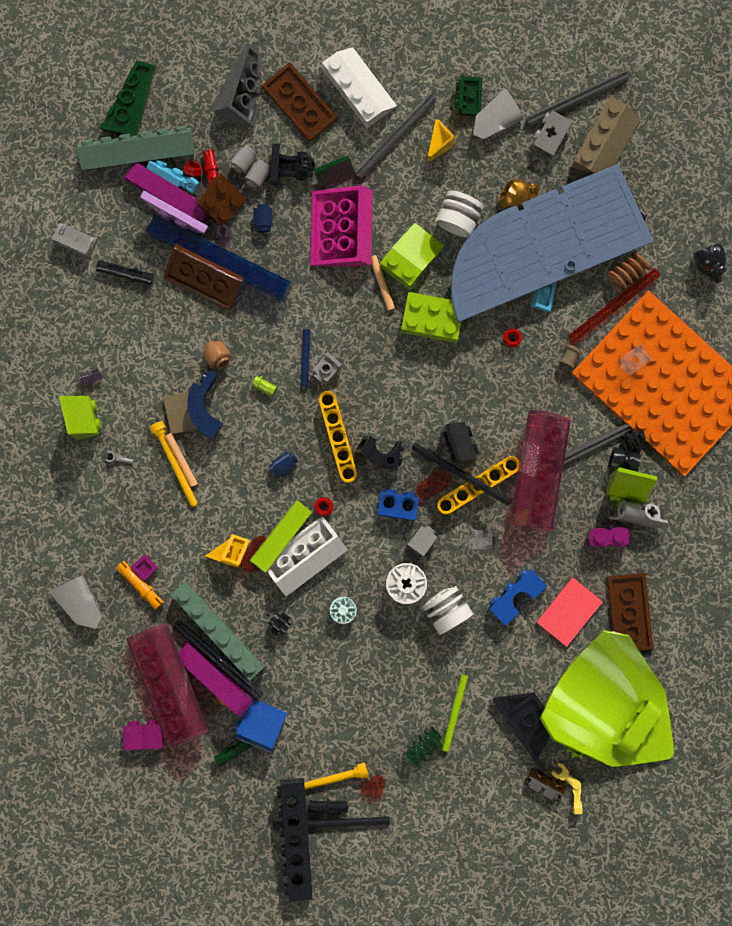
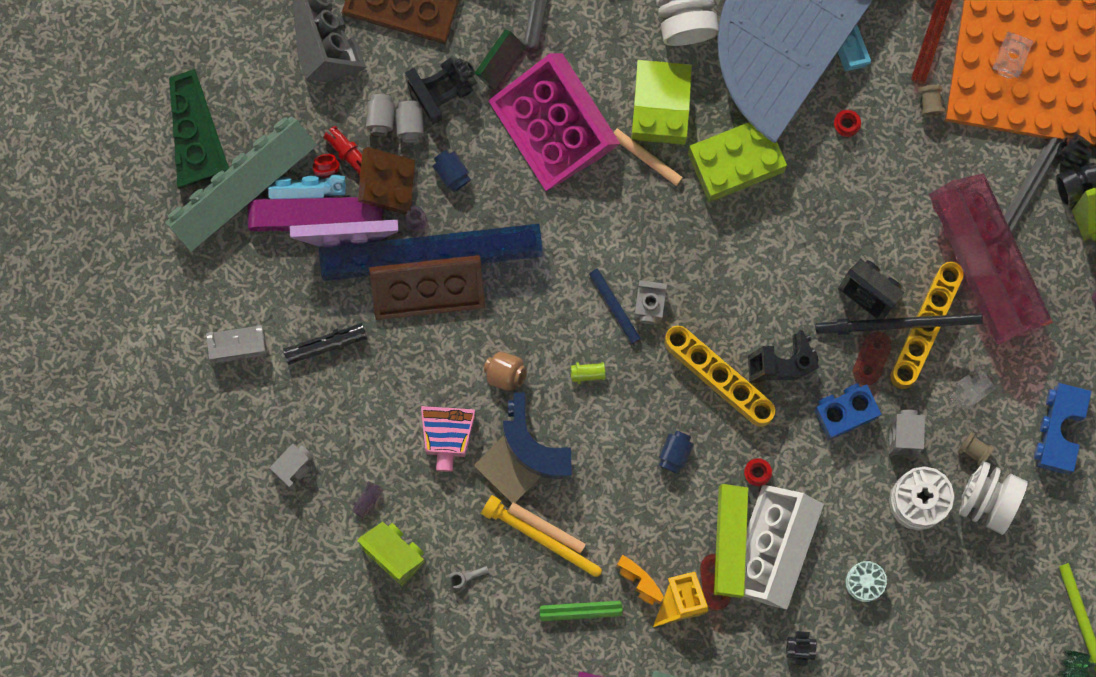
camera: 35 degrees left, 5 degrees down
(59, 330) = (292, 465): none -> light grey brick
(159, 369) = (446, 434): none -> torso
(169, 520) = (580, 610): none -> bright green axle
(215, 530) = (647, 587): none -> light orange slope
(458, 575) = (975, 448): none -> dark tan bush

